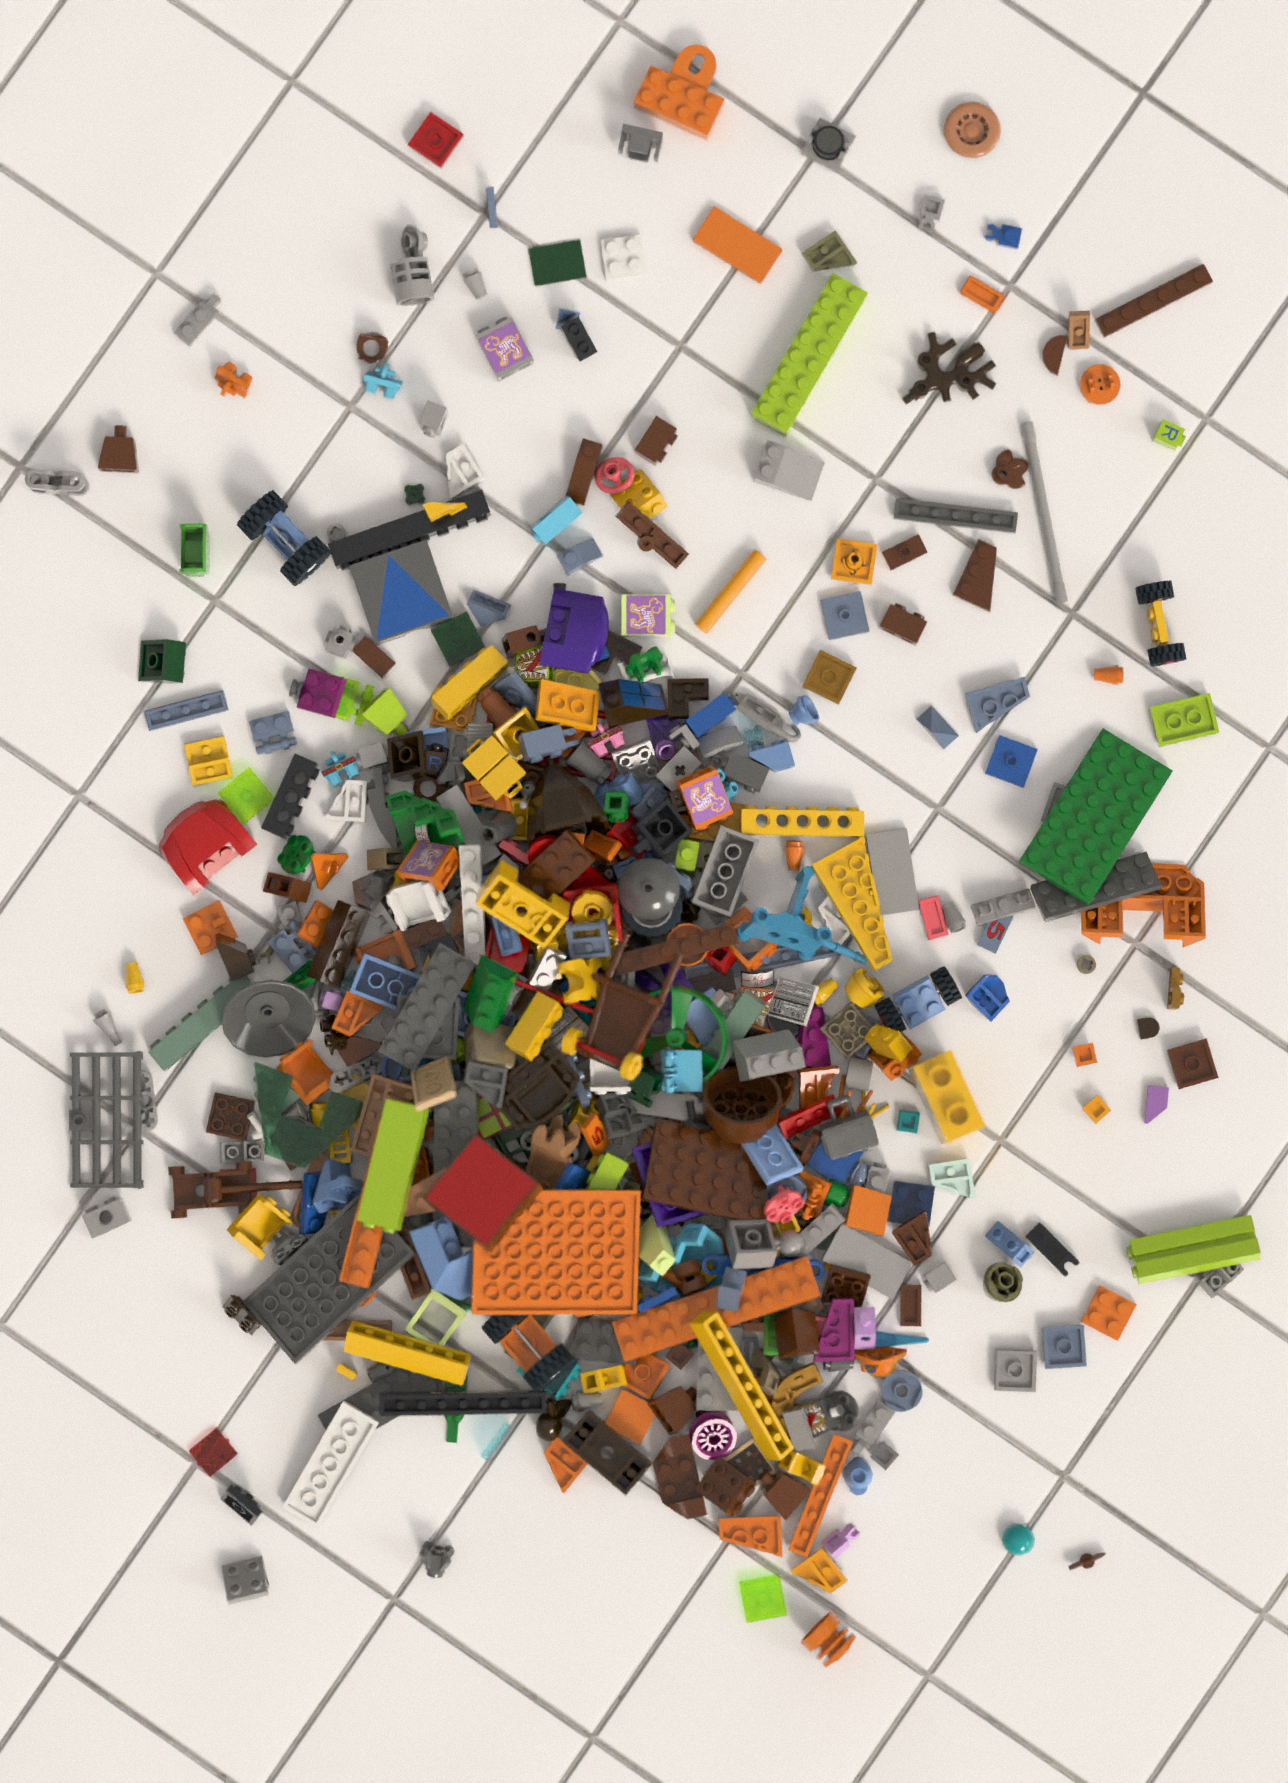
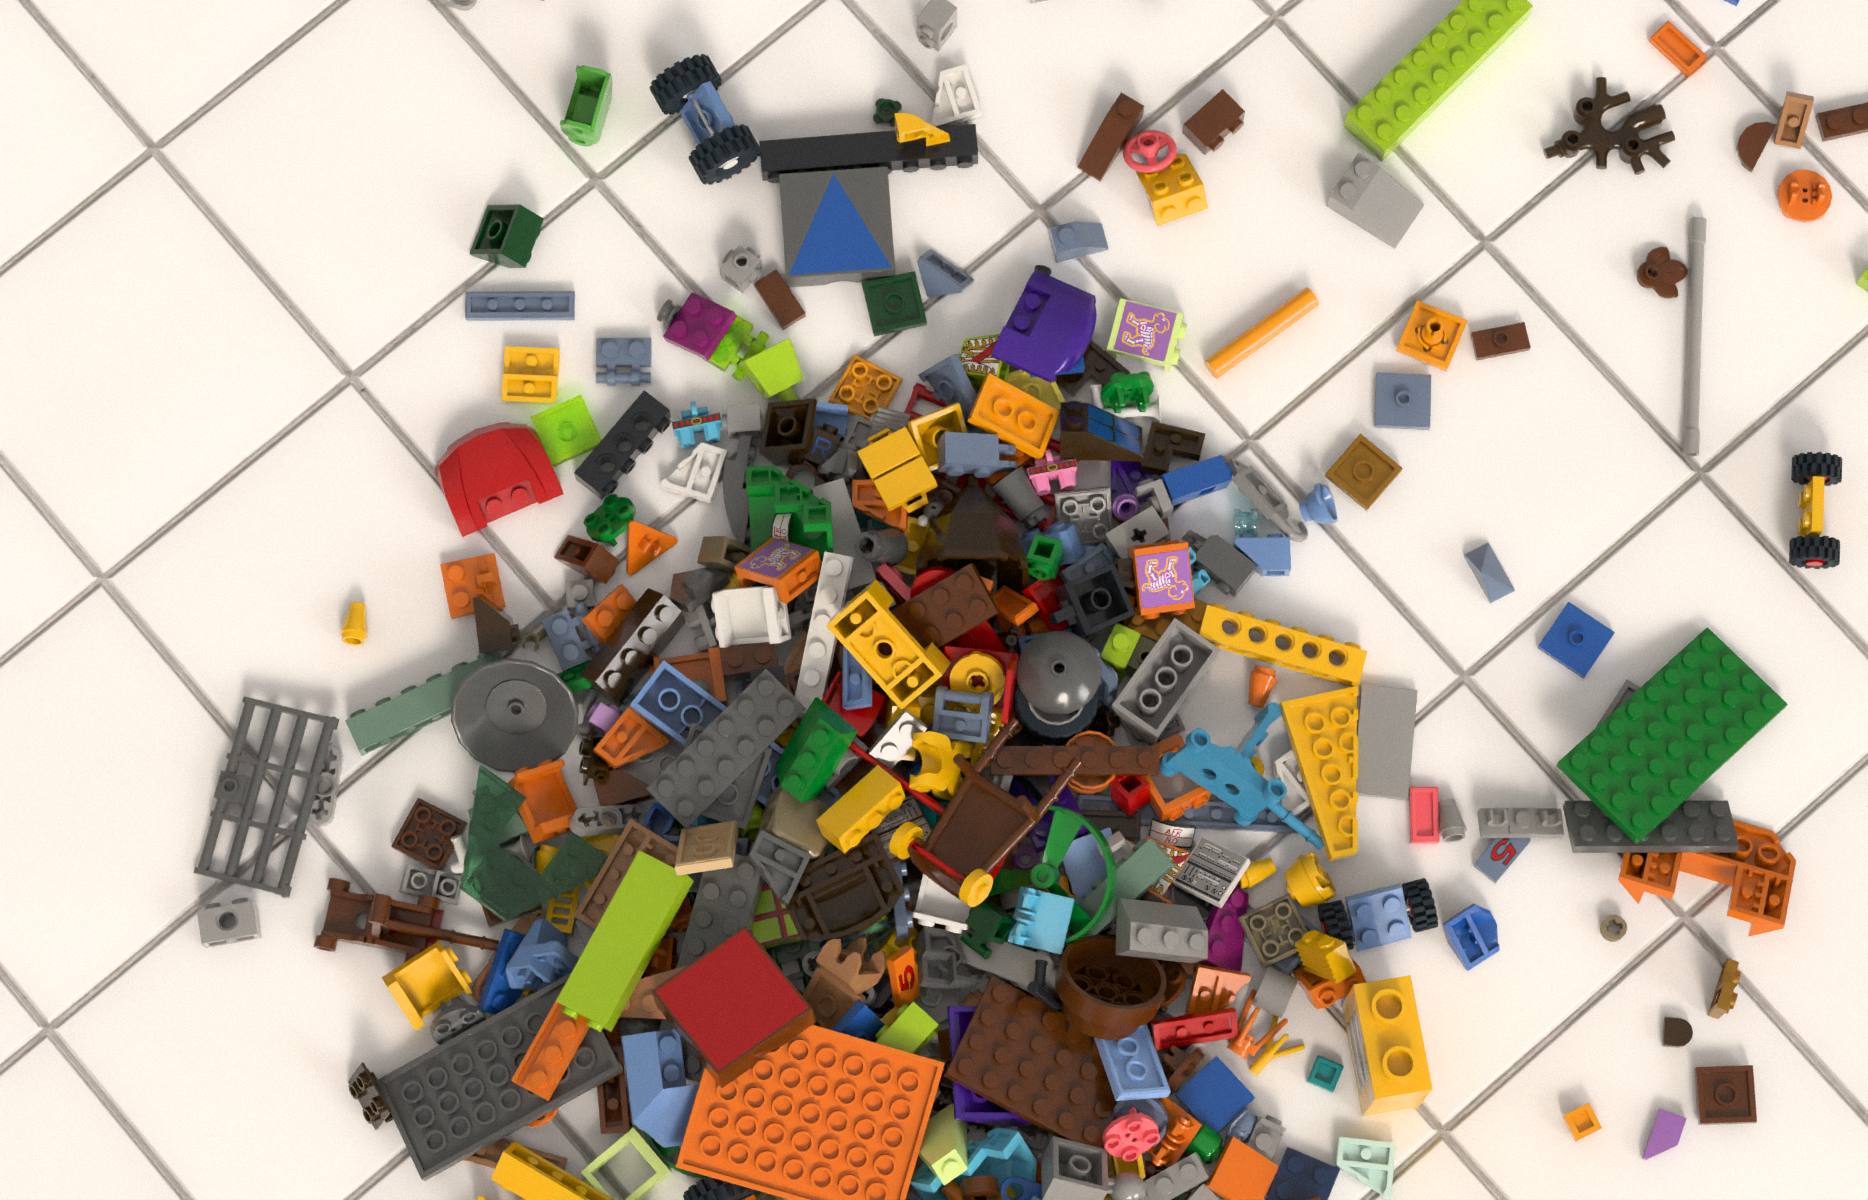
camera: 10 degrees right, 10 degrees down
(105, 1022) = (302, 671): light grey cone -> none
(330, 529) = (771, 126): light grey bush -> none
(469, 682) = (894, 358): yellow brick -> none
(495, 706) = (919, 394): dark orange plant -> none
(516, 641) = (975, 321): reddish brown torso -> none
(555, 520) = (1059, 187): medium azure brick -> none
(651, 536) = (1178, 234): reddish brown hinge -> none
(722, 739) = (1206, 514): light grey slope -> none
(847, 1133) = (1241, 1065): dark grey piece -> none
(903, 624) = (1476, 429): reddish brown brick -> none
(955, 515) = (1578, 311): dark grey plate -> none
(978, 577) = (1588, 396): reddish brown wing -> none
(994, 701) = (1572, 557): sand blue wing -> none
(1084, 1054) = (1584, 1044): orange tile -> none
(1110, 674) = (1732, 561): orange cone -> none
(1184, 720) = (1817, 644): lime plate -> none

